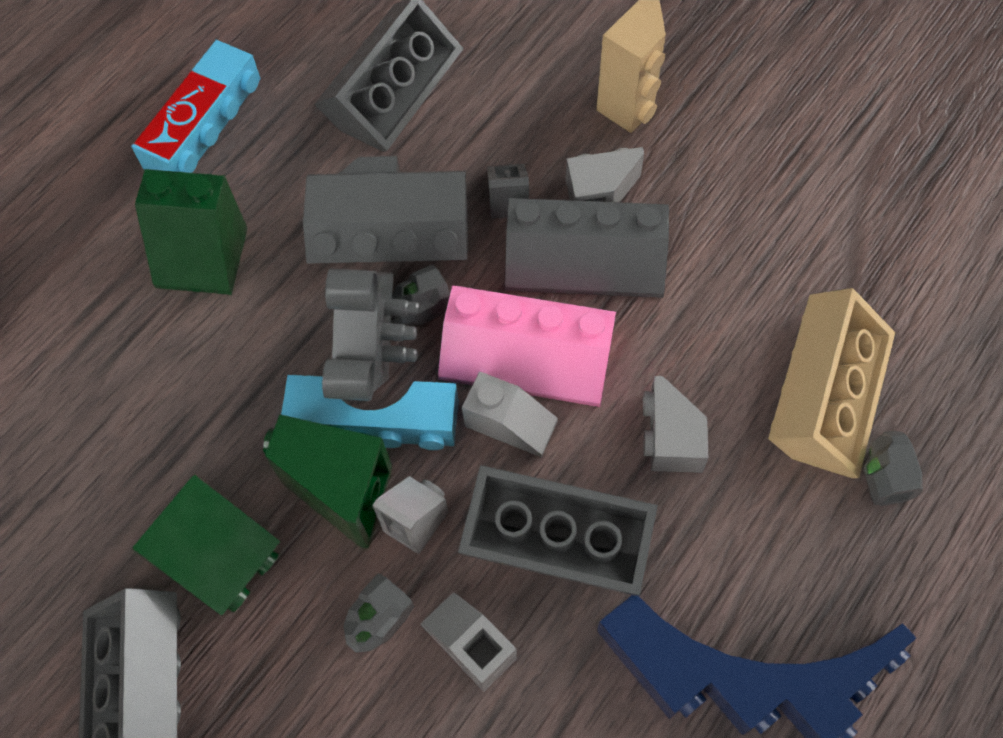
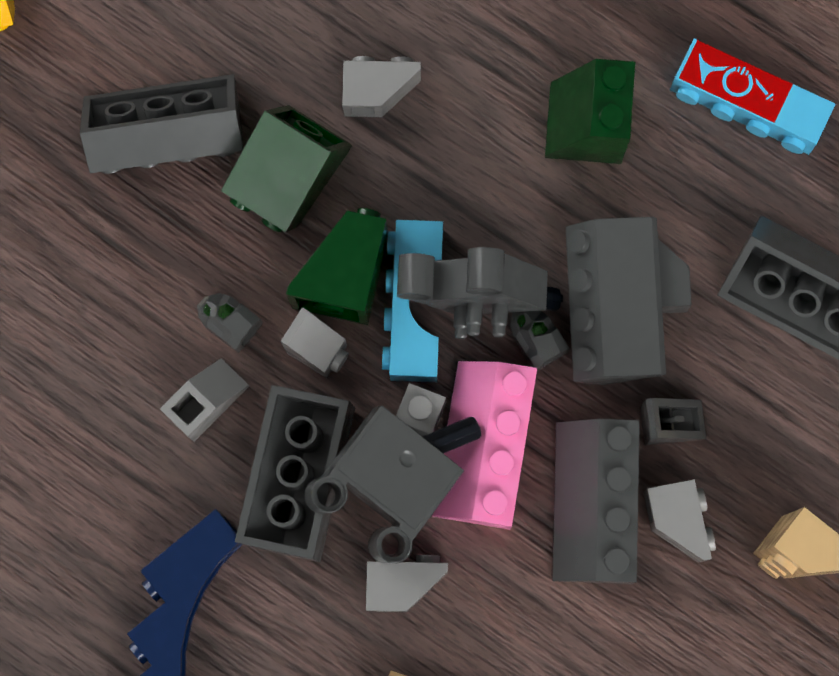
camera: 90 degrees right, 15 degrees up
(123, 451) = (377, 86): none -> light grey slope
(563, 418) = (395, 475): none -> dark grey piece

